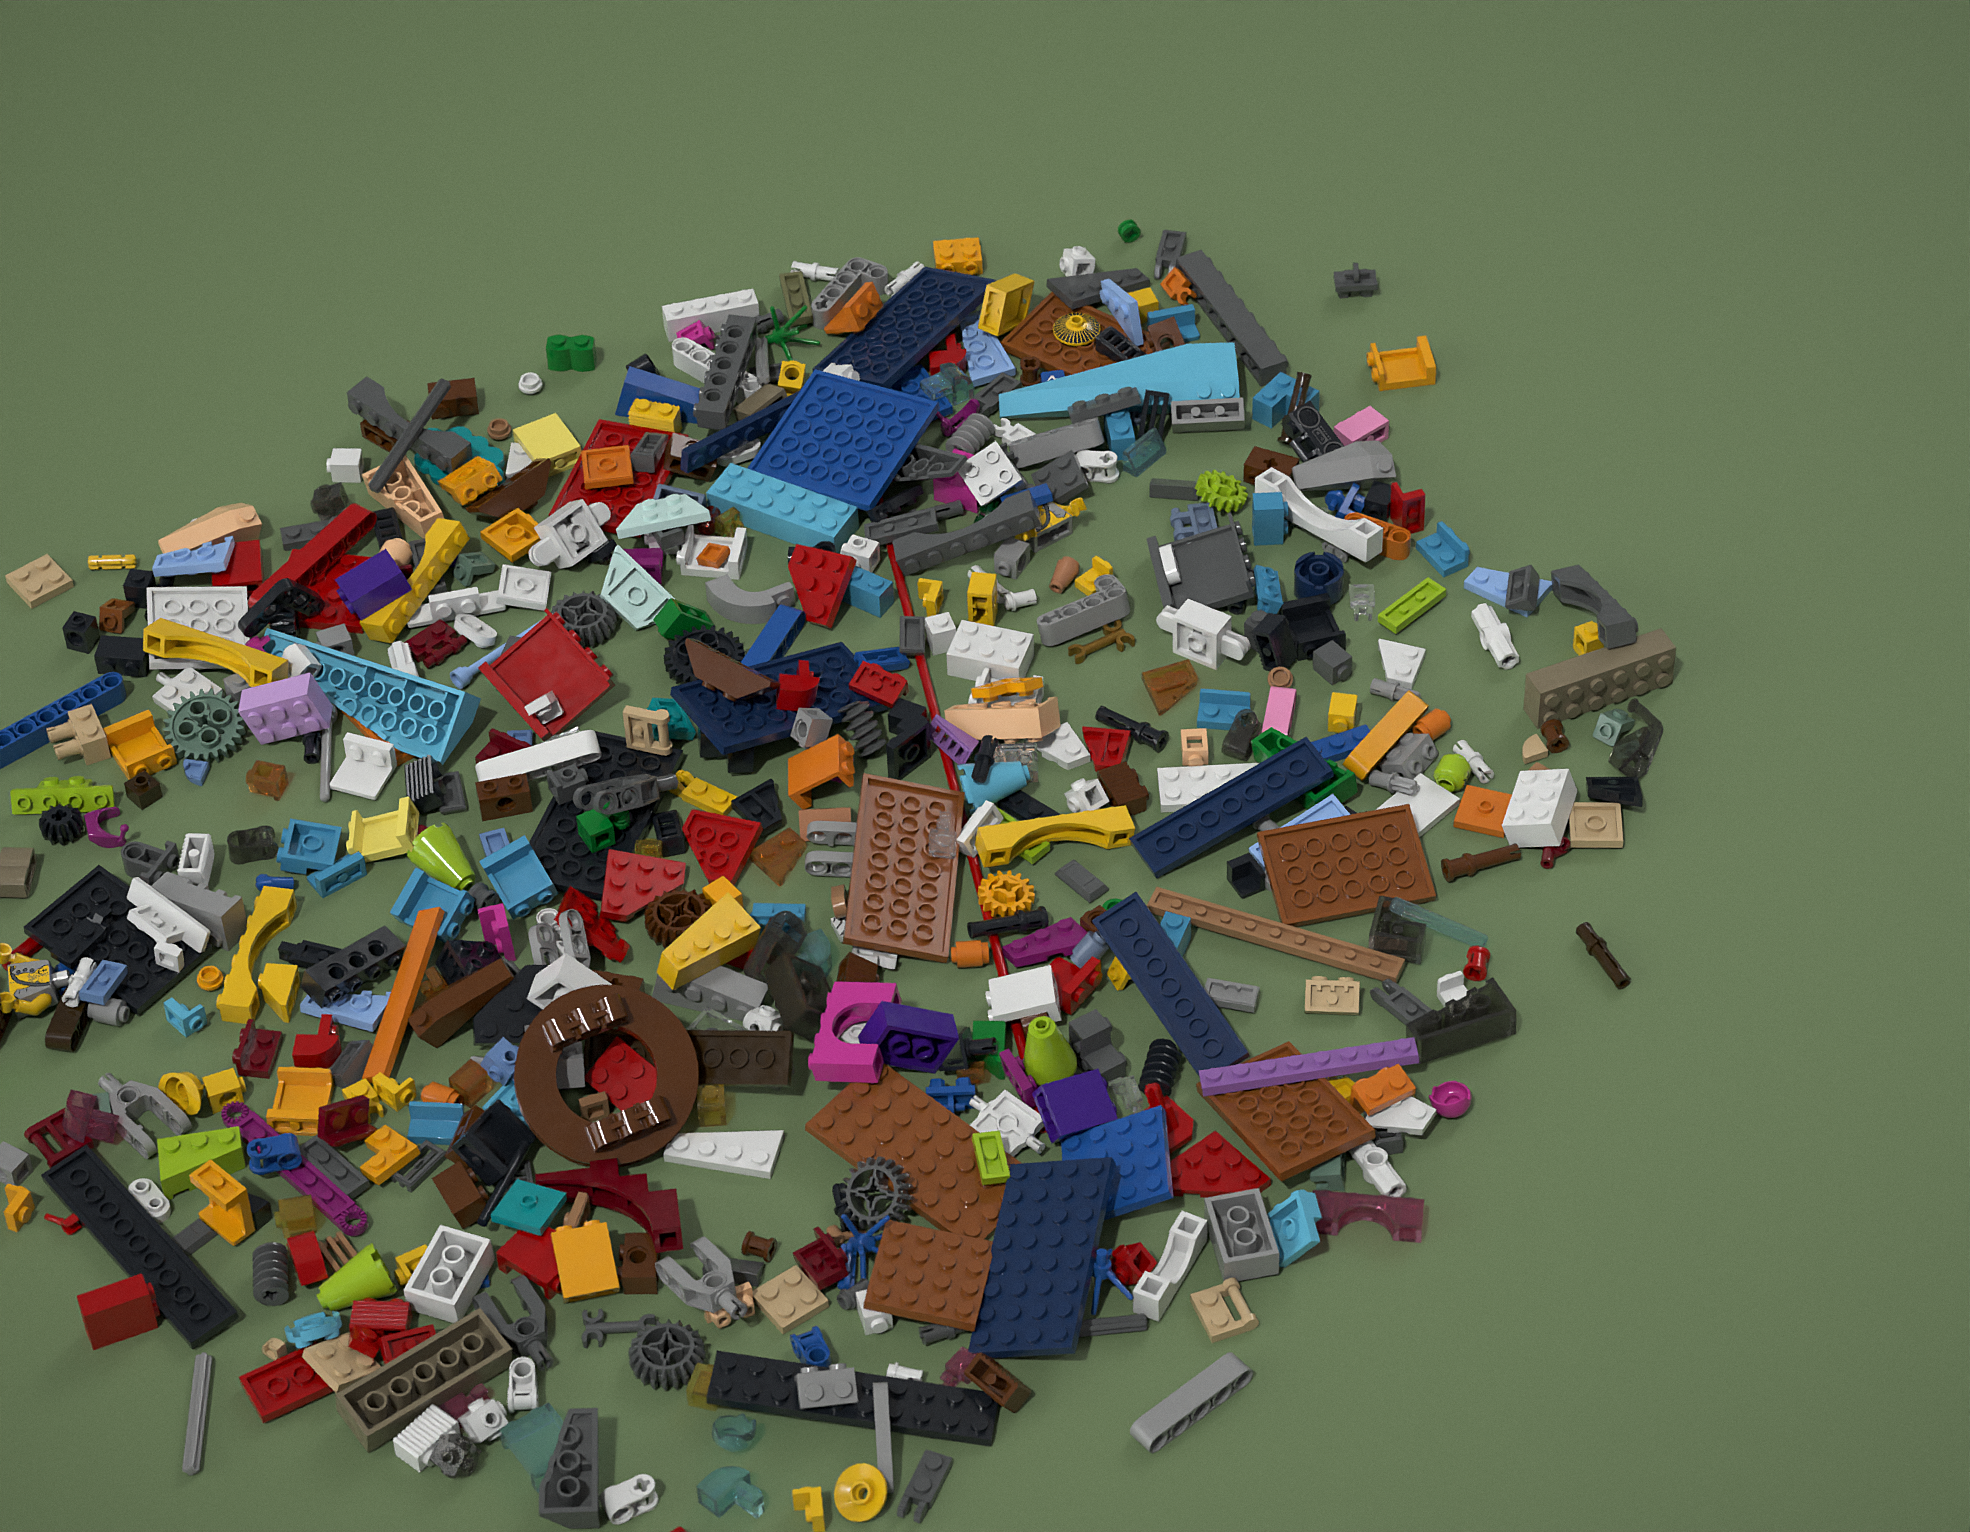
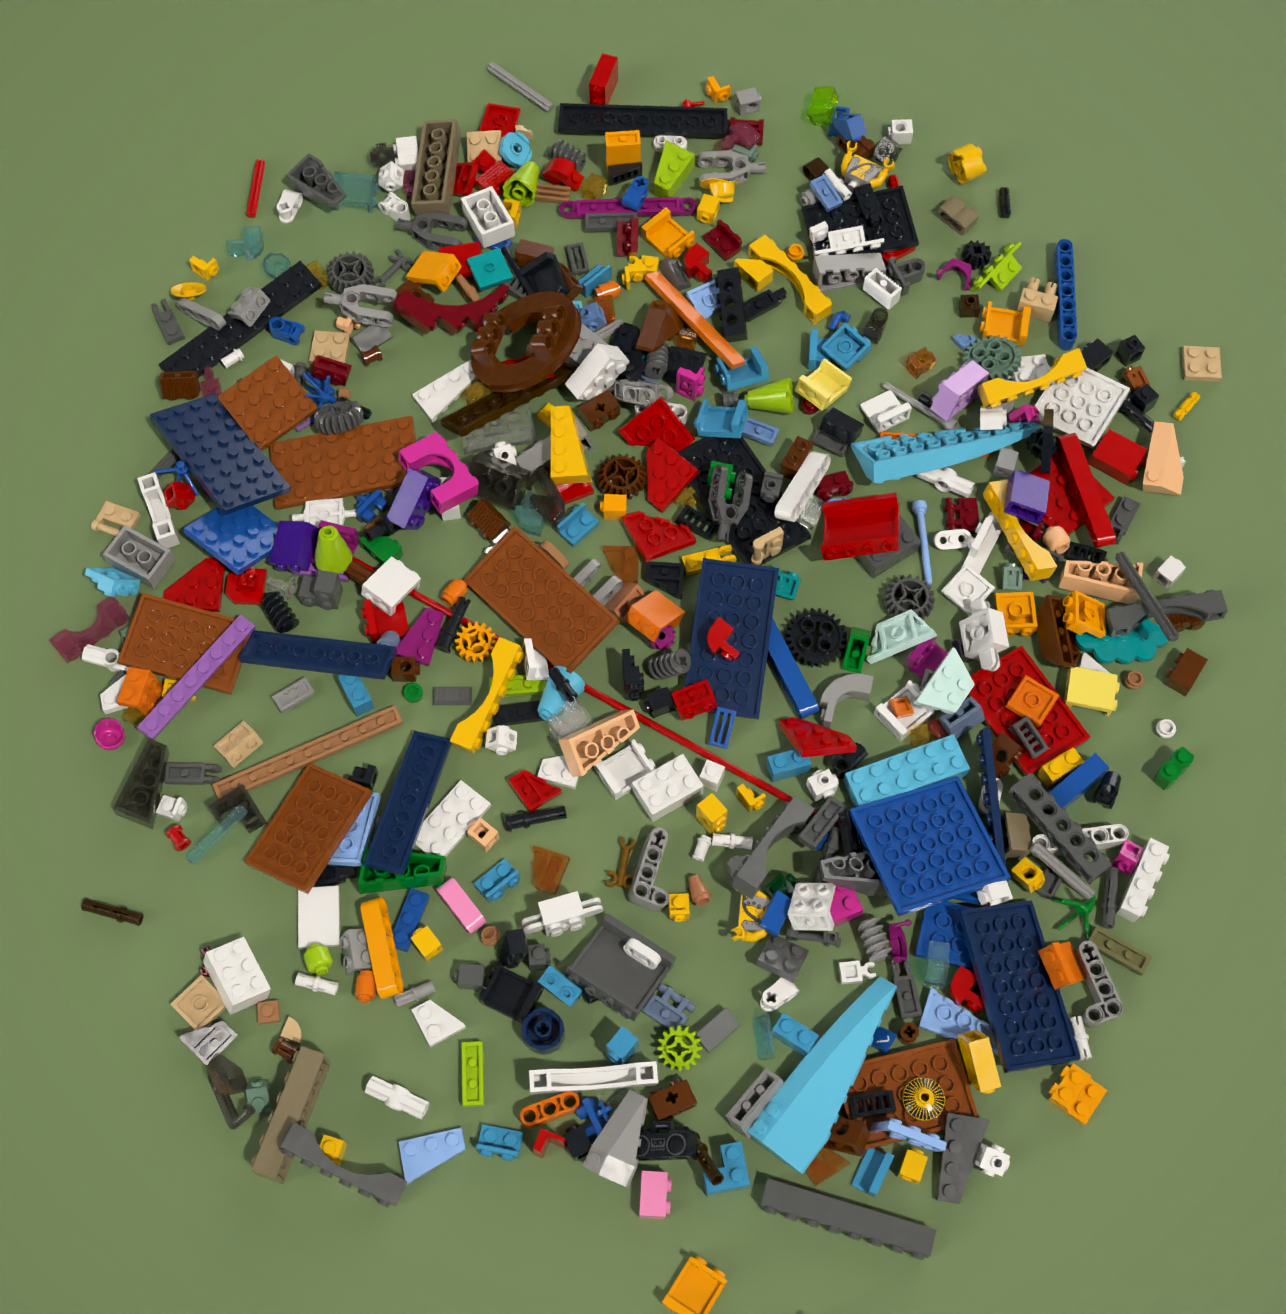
camera: 130 degrees right, 20 degrees up
(184, 1020) = (777, 221): medium azure bracket -> none
(204, 559) = (1135, 430): light blue wing -> none
(329, 501) = (1137, 538): clear smoke brick -> none
(392, 1154) = (593, 251): light orange plate -> none
(545, 707) = (841, 511): white bracket -> none
(726, 673) = (758, 602): reddish brown wedge -> none
(811, 727) = (684, 624): light grey brick -> none
(815, 271) = (1138, 986): white pin -> none
(912, 635) = (724, 756): dark grey tile -> none
(941, 840) = (538, 630): clear plate -> none
(961, 738) = (610, 707): medium lavender slope -> none
(990, 1157) = (303, 480): lime plate -> none
(1007, 687) = (626, 763): light orange plate -> none
(1056, 442) = (806, 999): light grey beam -> none
(1103, 404) = (816, 1032): dark grey plate -> none
(1123, 788) = (491, 768): reddish brown brick -> none
(1129, 231) = (1003, 1234): green bush -> none
(1156, 394) = (793, 1071): black tile -> none
(1169, 249) = (956, 1243): dark grey hinge -> none
(1177, 286) = (912, 1211): orange plate -> none
(1191, 1402) = (81, 460): light grey beam -> none
(1238, 739) = (464, 868): clear smoke piece -> none
(1362, 600) = (507, 1048): clear plate -> none
(1393, 782) = (344, 918): light grey axle -> none
(1469, 863) = (247, 903): reddish brown pin -> none
(1482, 811) = (277, 955): orange plate -> none
(1522, 589) = (412, 1149): dark grey slope -> none

